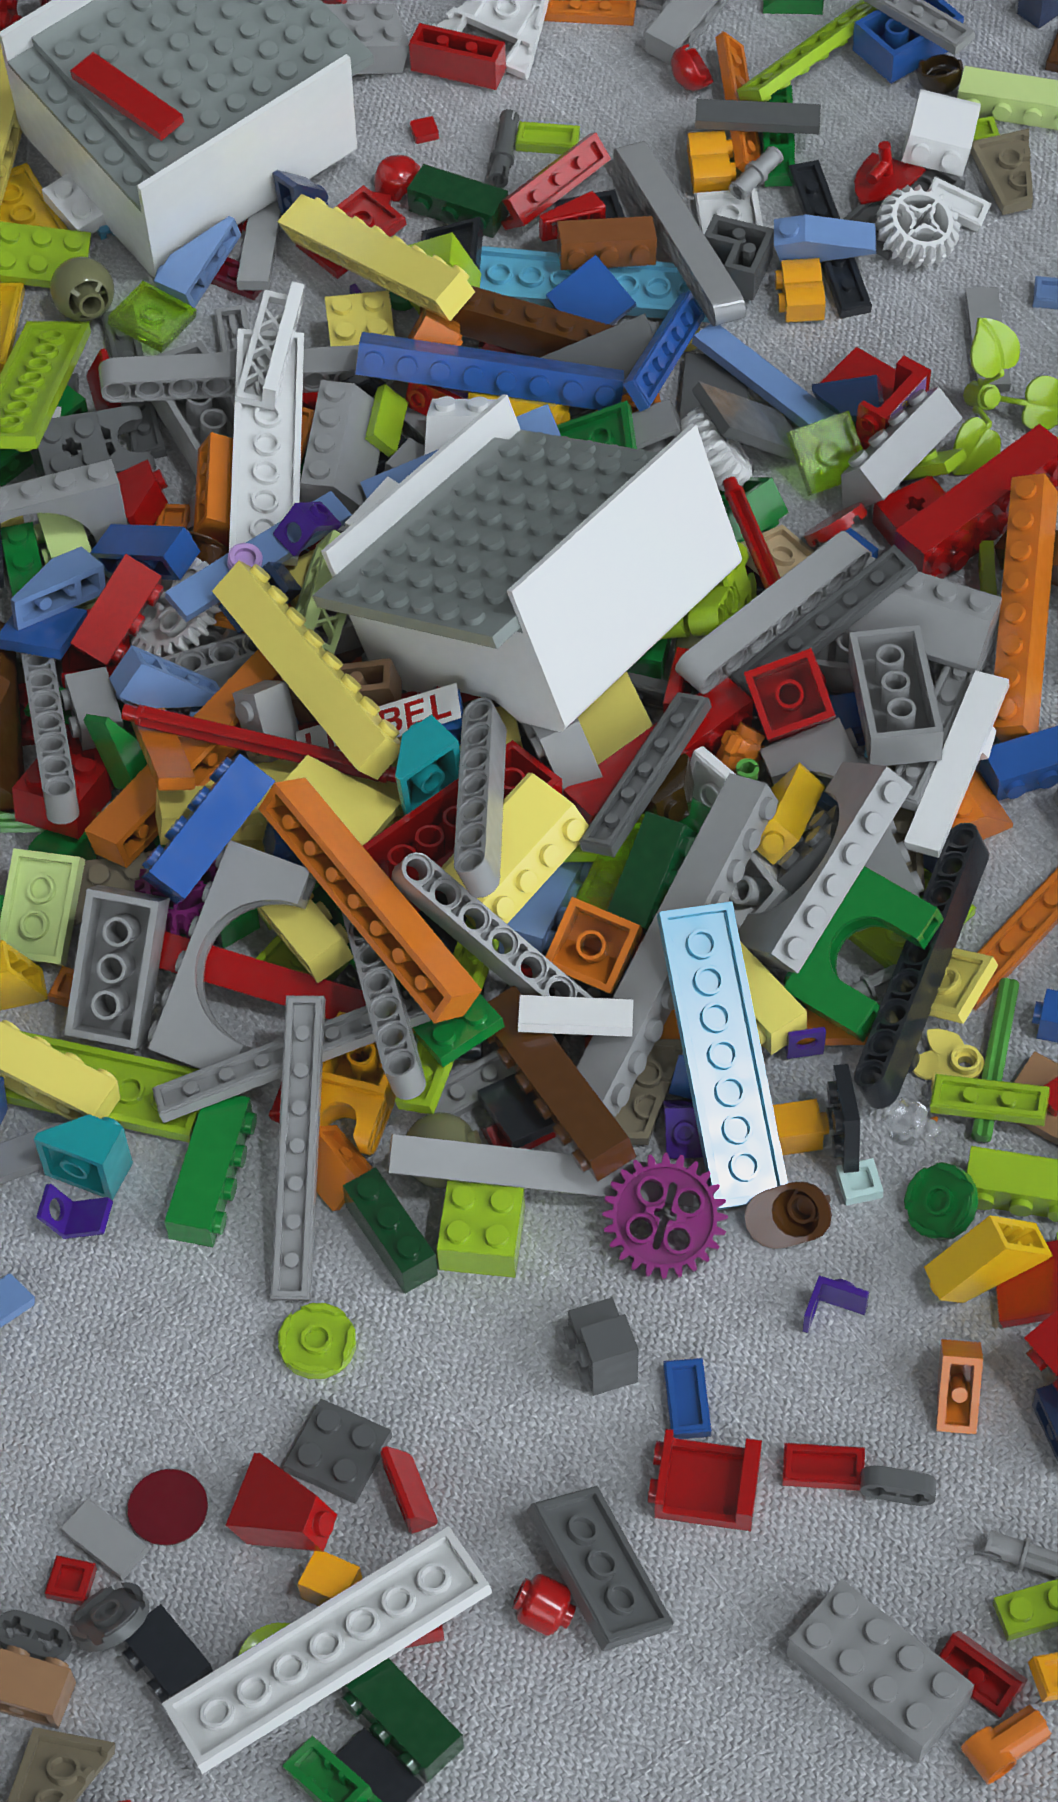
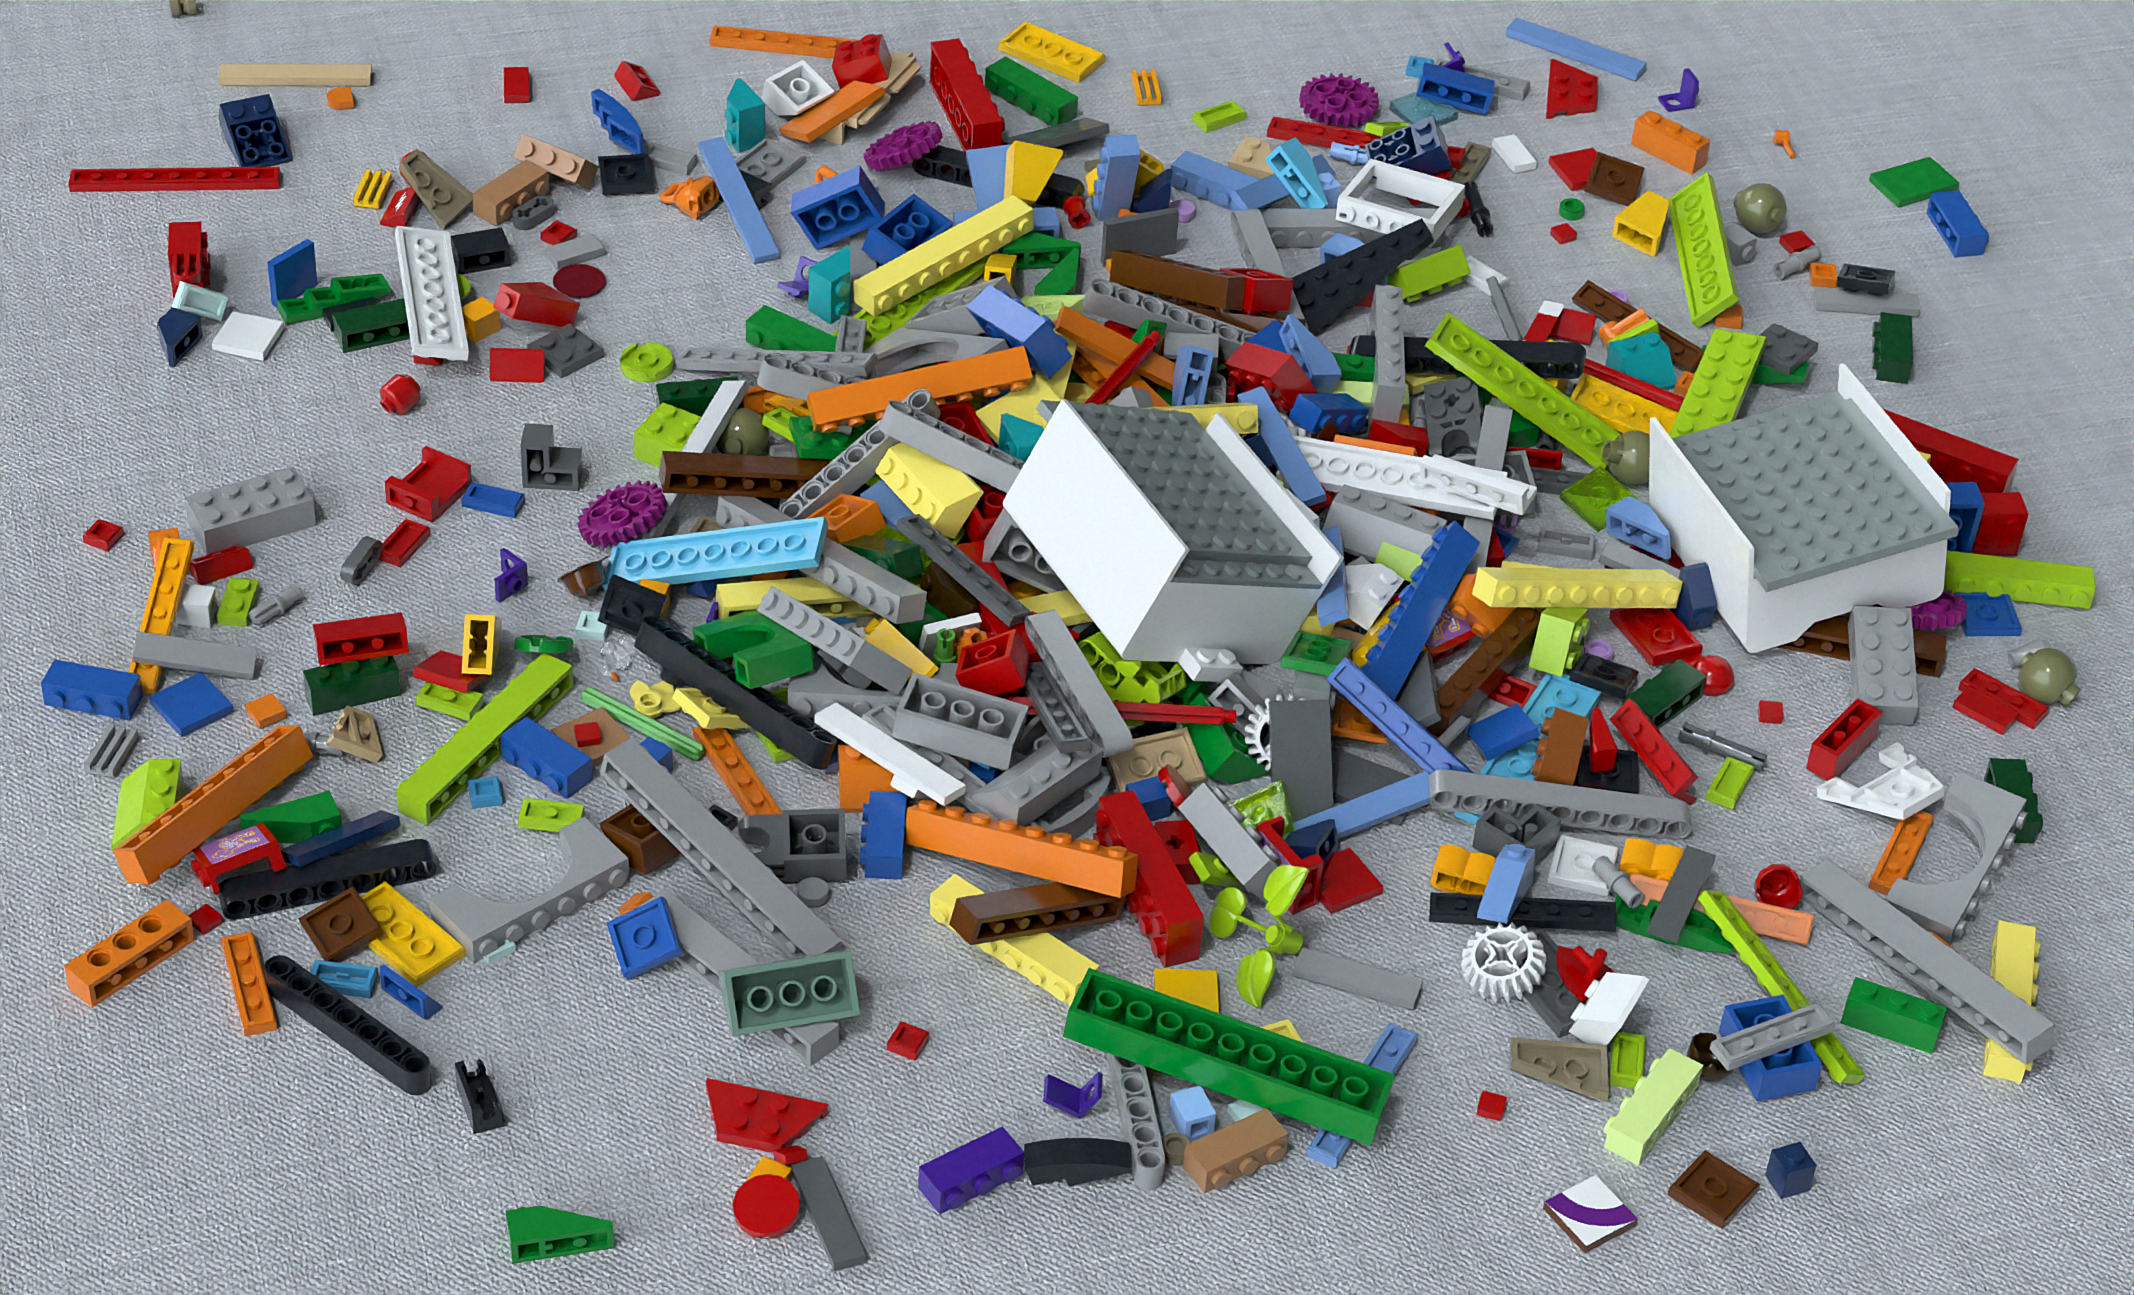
camera: 105 degrees right, 15 degrees down
(109, 1617) = (515, 230): dark grey tile -> none
(127, 96) = (1757, 429): red tile -> none
(246, 553) = (1273, 429): lavender tile -> none
(310, 518) = (1294, 469): dark purple bracket -> none
(575, 1015) = (783, 485): white tile -> none
(599, 1568) = (405, 421): dark grey tile -> none
(959, 1386) = (417, 607): orange slope -> none
(971, 208) = (1530, 1010): white tile -> none
(989, 1099) = (605, 695): lime tile -> none

